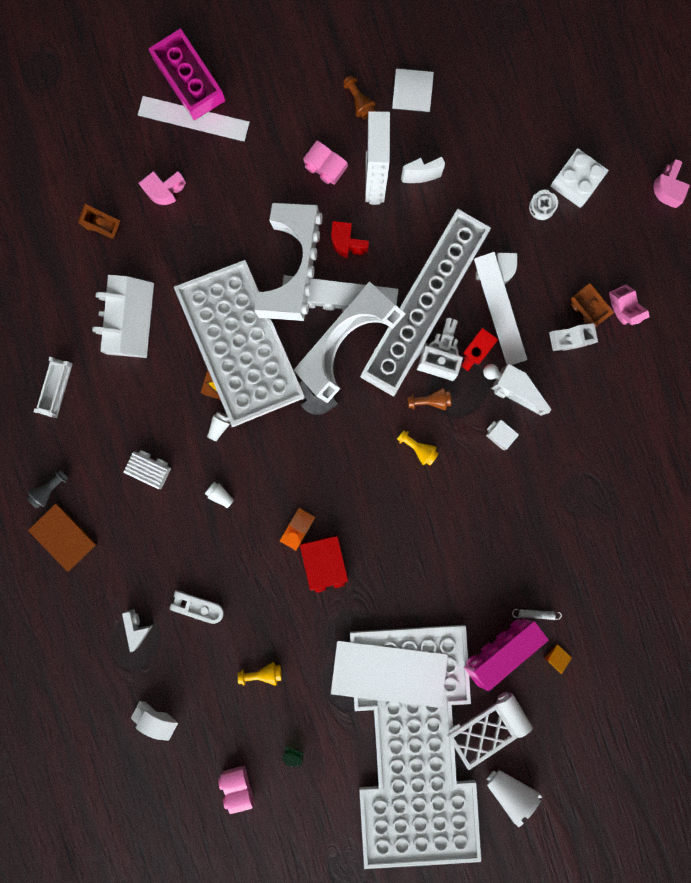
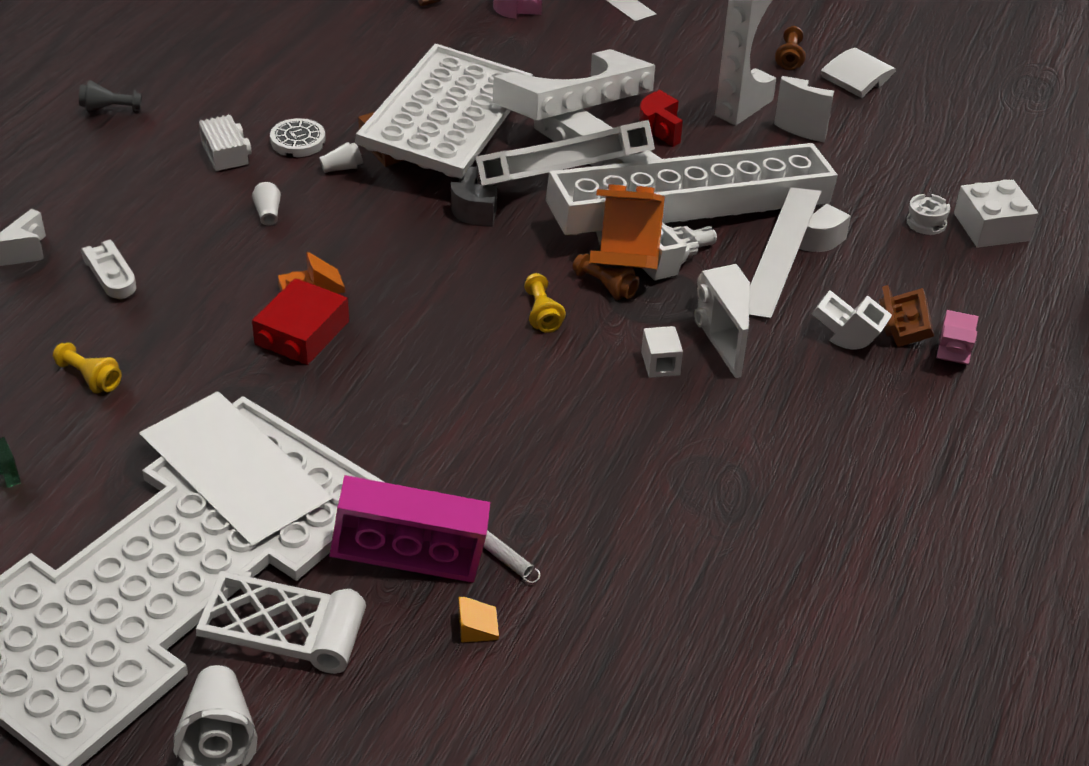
camera: 40 degrees right, 45 degrees down
(53, 387) = (222, 48): white container -> none
(62, 537) = (66, 141): dark orange tile -> none
(125, 316) = (358, 43): white piece -> none
(174, 426) = (298, 137): none -> white tile
(325, 162) = (700, 62): bright pink brick -> none
(434, 380) = (630, 227): none -> orange panel
(484, 342) = (714, 251): red torso -> none

